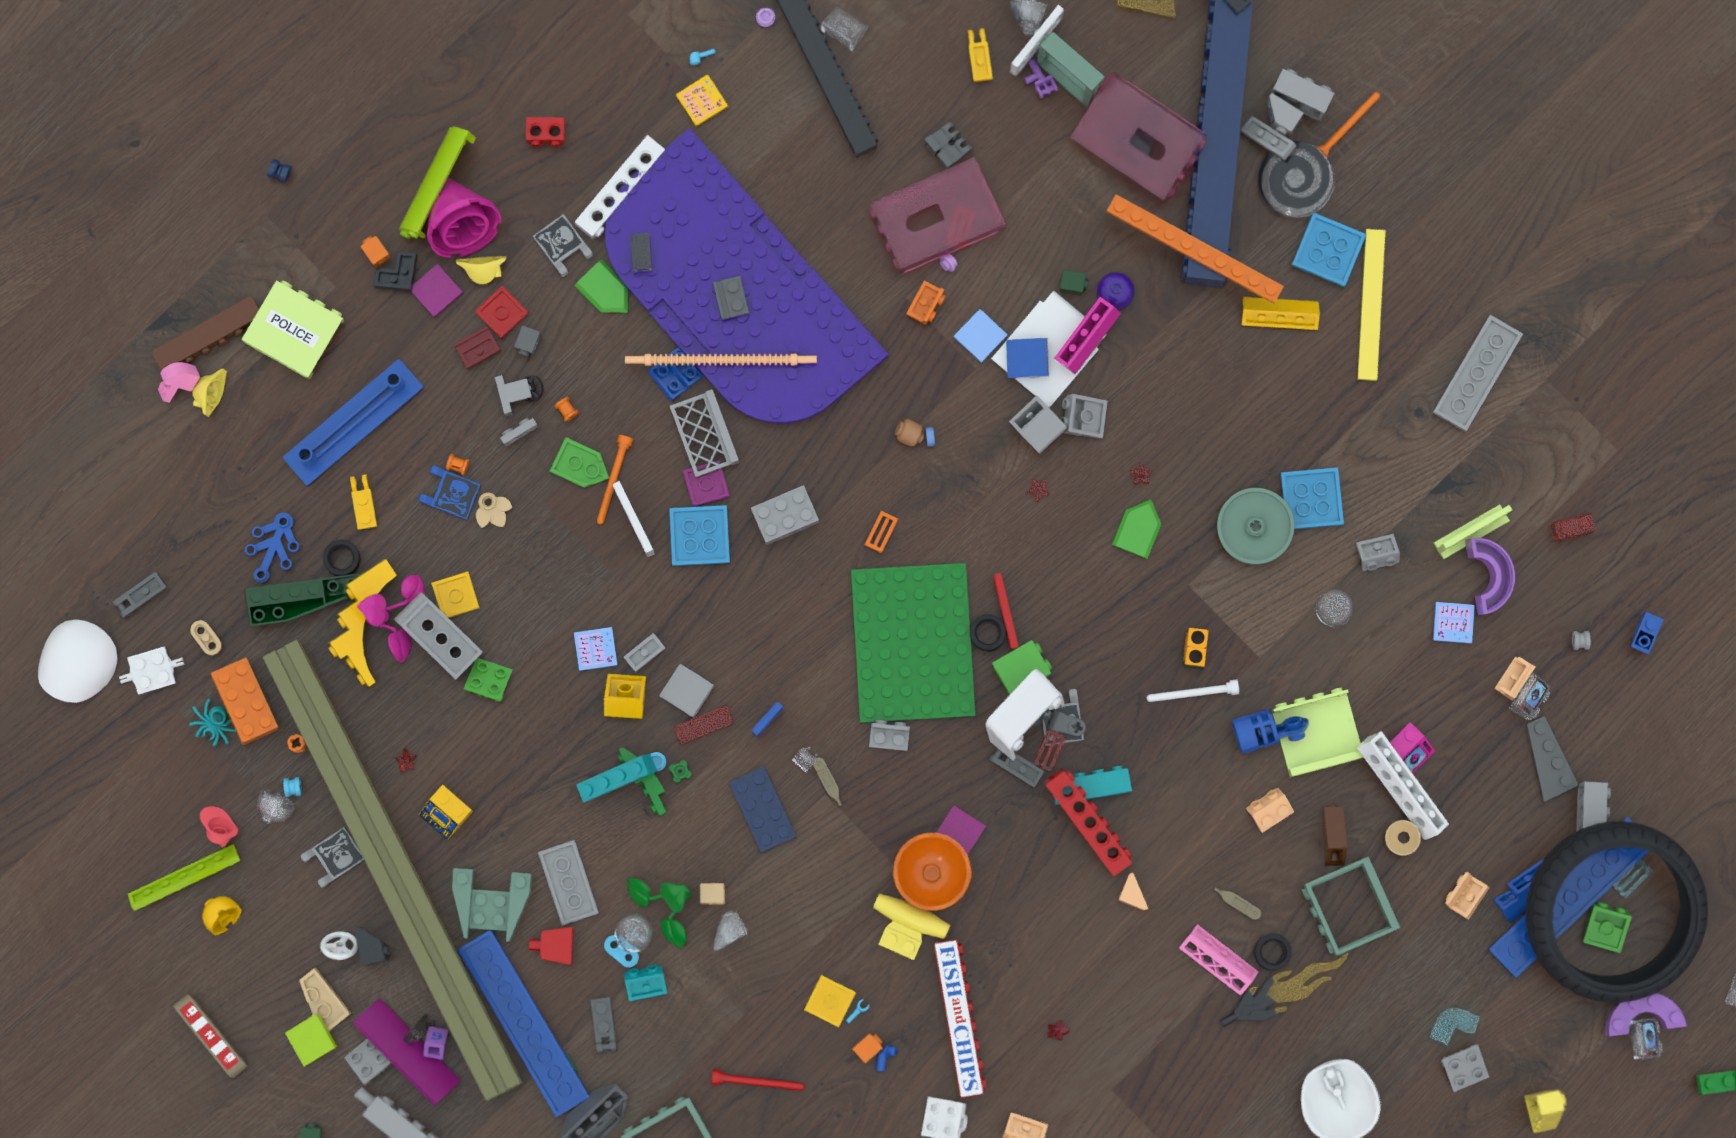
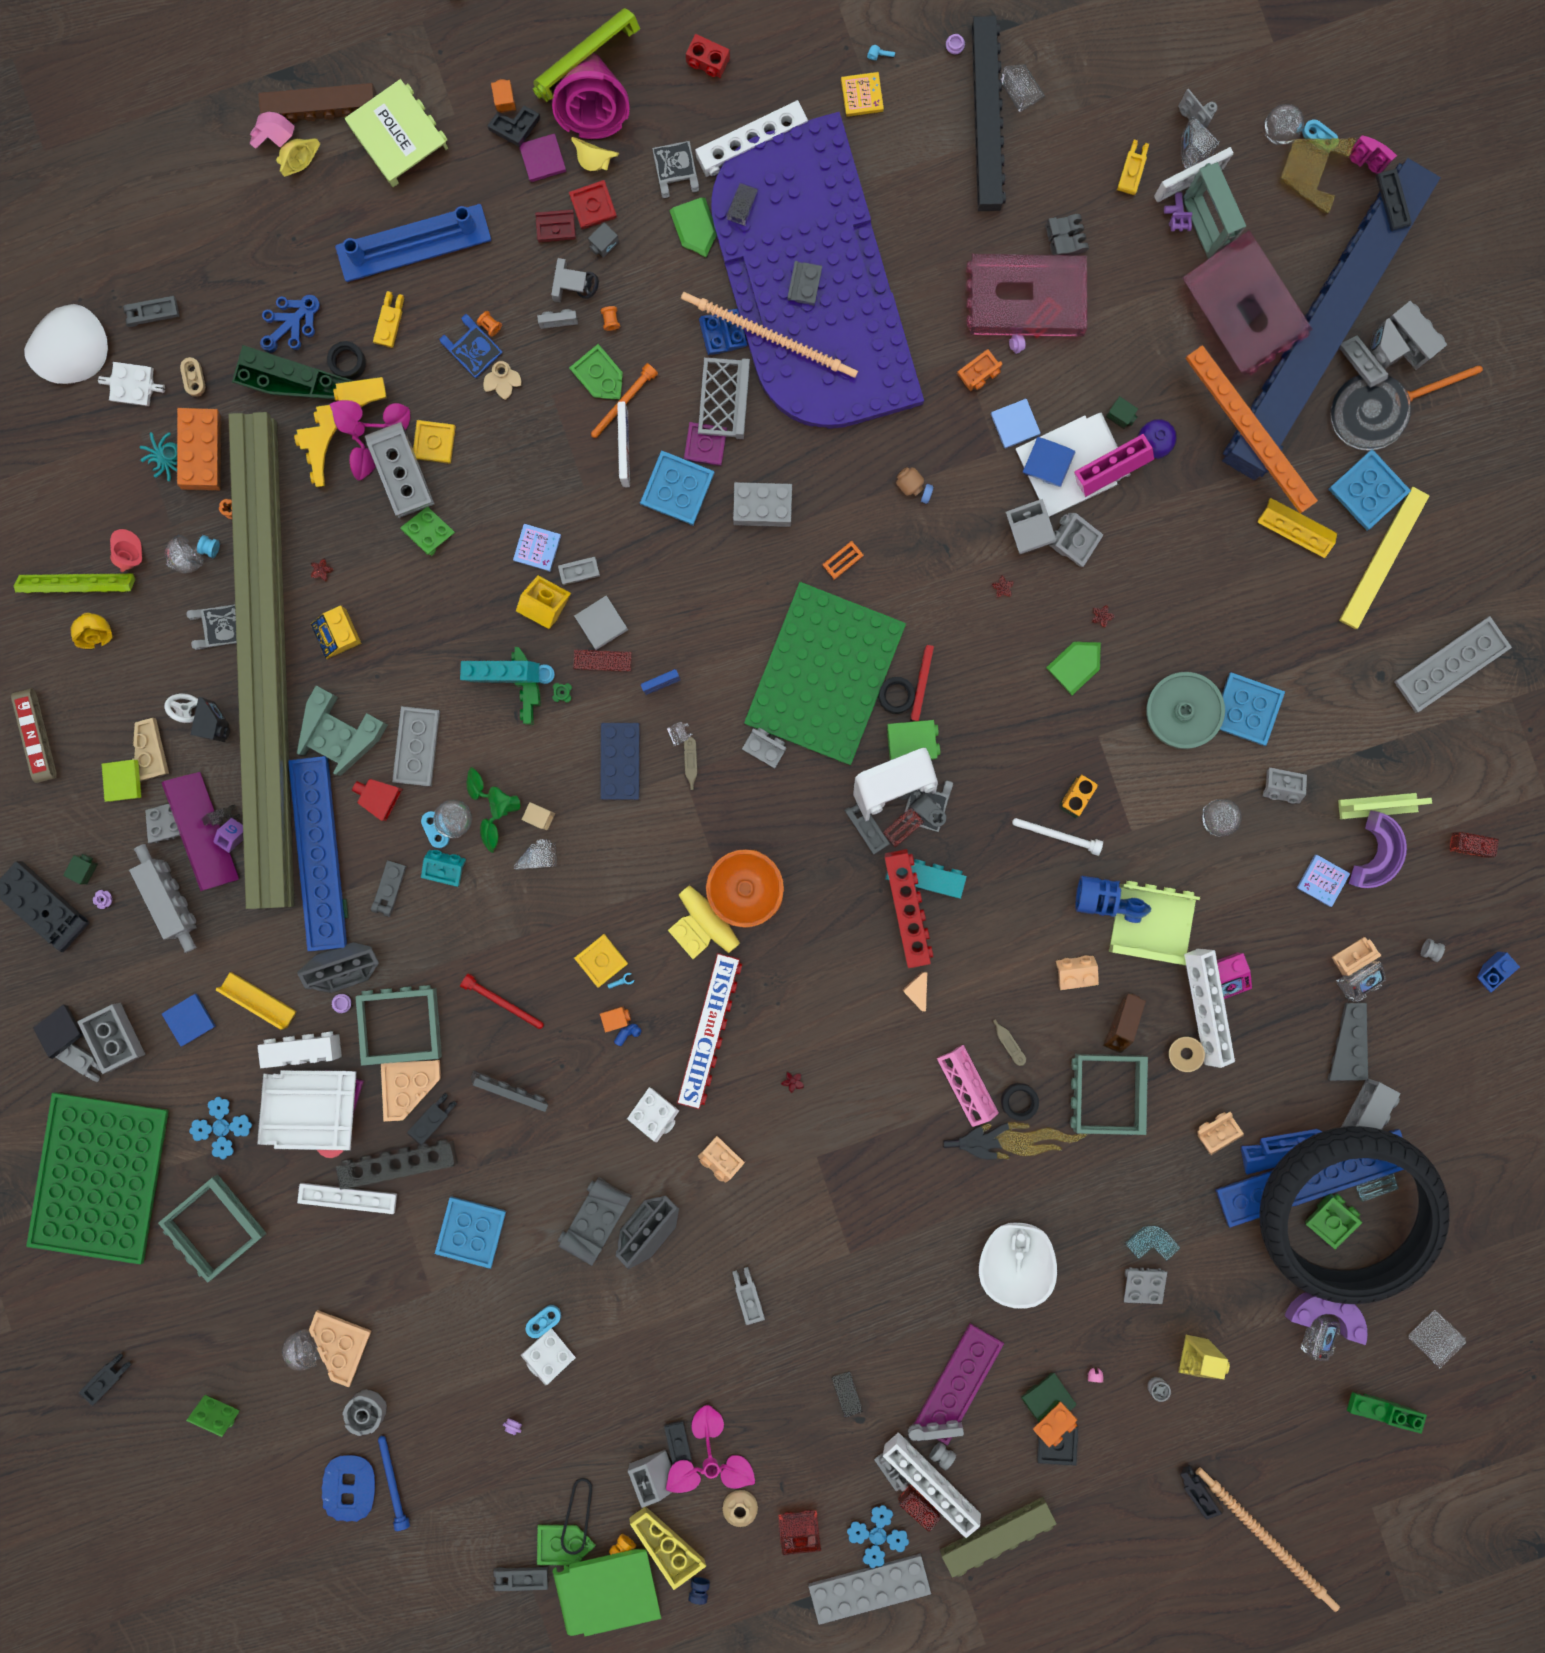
camera: 25 degrees right, 5 degrees up
(961, 828) = (790, 861): magenta tile -> none

